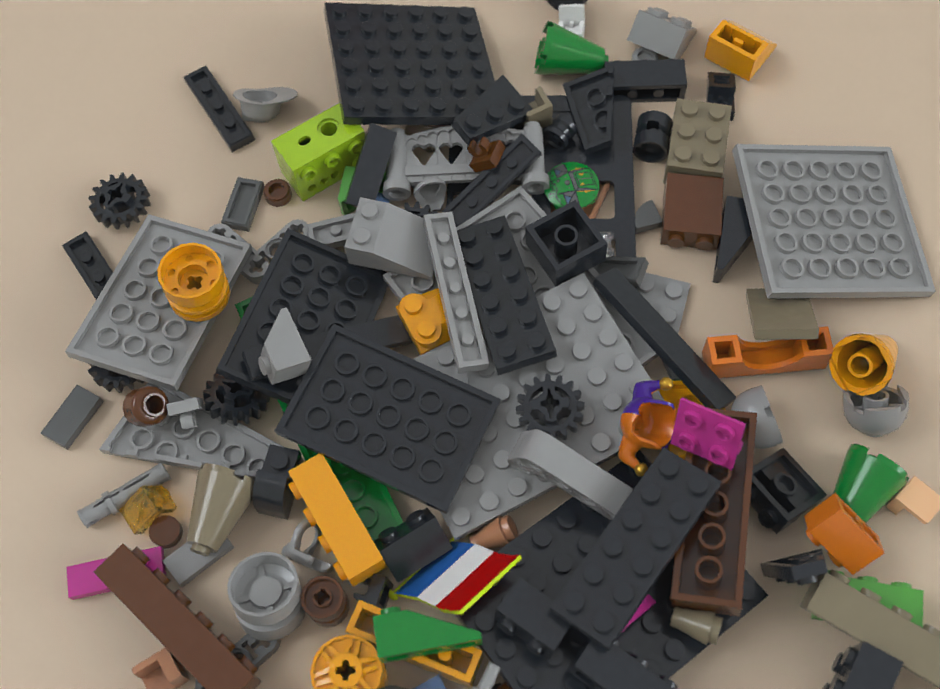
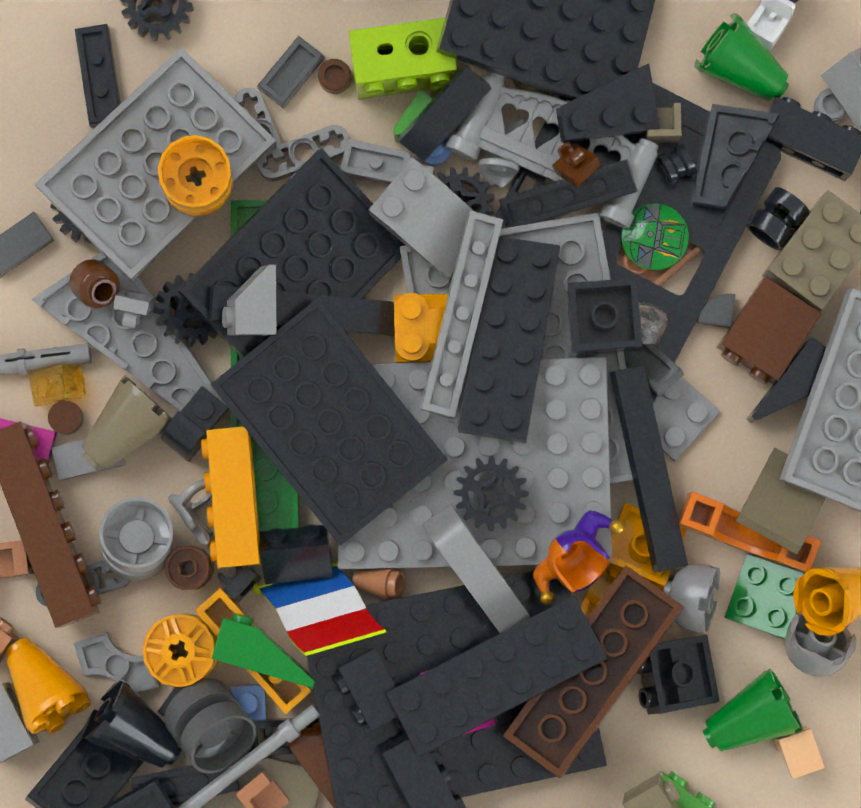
camera: 20 degrees right, 20 degrees up
(698, 624) = (520, 766): dark tan cone -> none
(707, 433) = (624, 620): dark pink hinge -> none
(797, 568) = (645, 760): black wing -> none
(810, 397) = (764, 596): none -> hinge
(843, 534) = (705, 750): orange brick -> none

